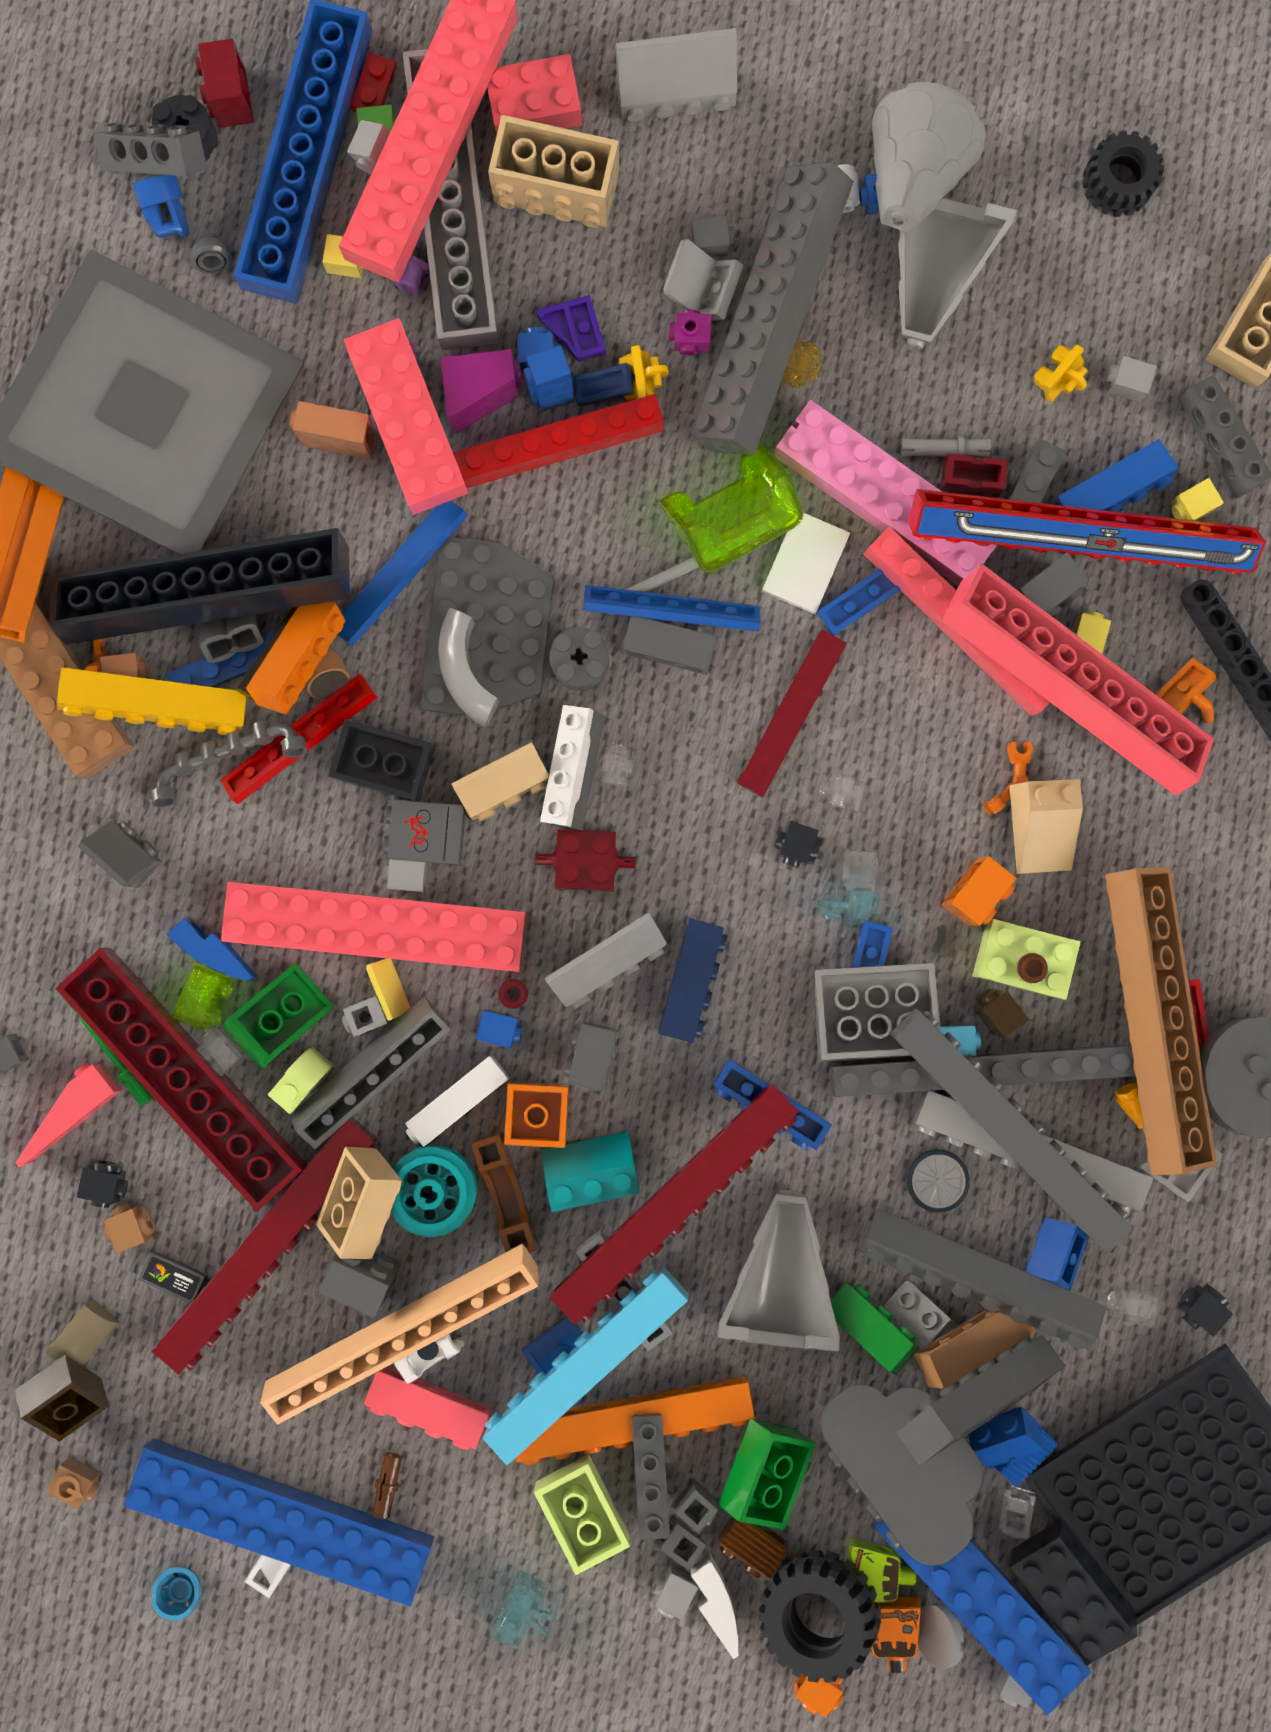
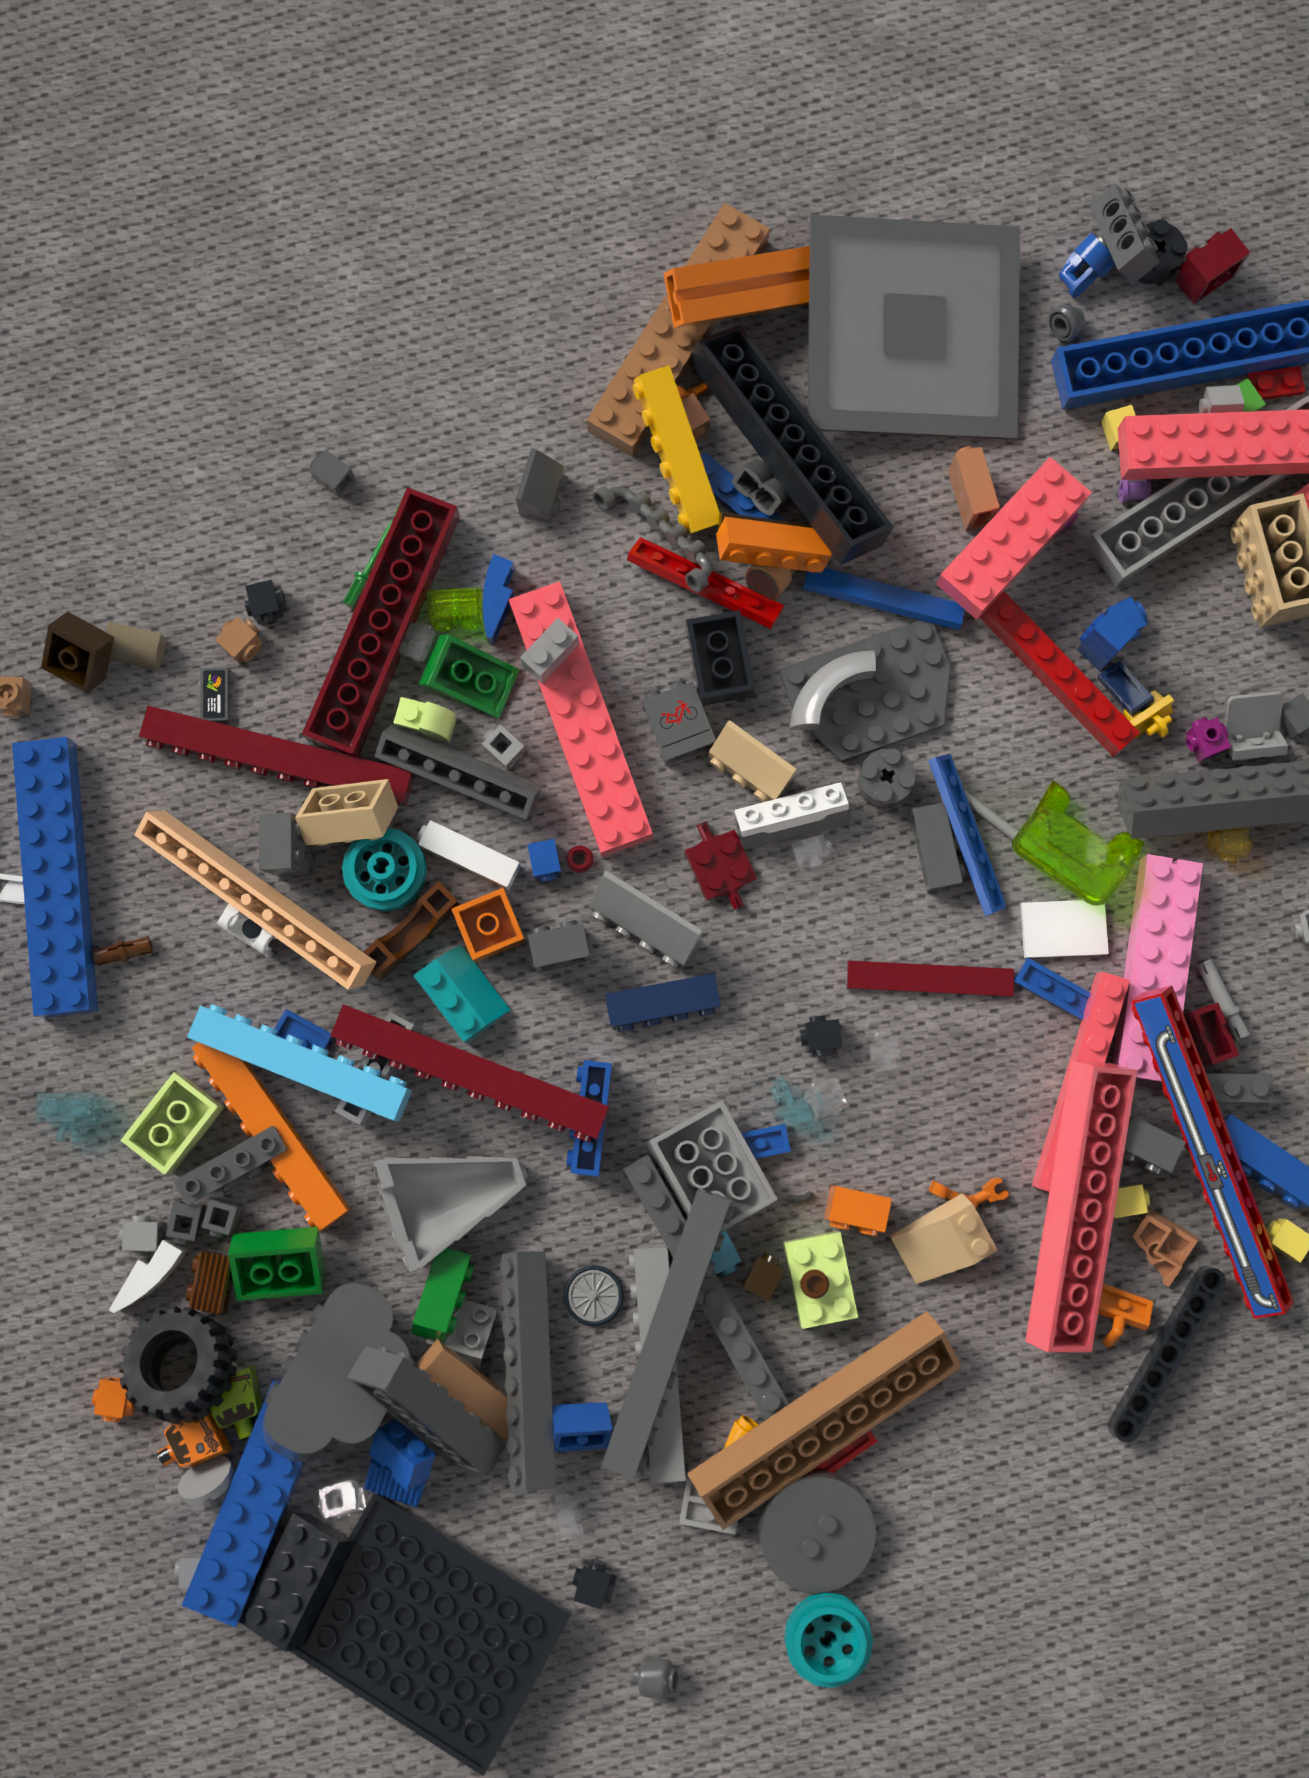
camera: 65 degrees right, 5 degrees down
(78, 1101) = (325, 551): coral slope -> none
(294, 926) = (550, 650): none -> light grey brick
(388, 988) = (534, 754): light yellow slope -> none
(406, 875) = (635, 723): light grey brick -> none
(427, 1407) = (203, 952): coral brick -> none
(478, 385) = (1070, 585): magenta slope -> none
(574, 327) = (1161, 641): dark purple wing -> none
(1144, 619) = (1164, 1243): none -> nougat slope

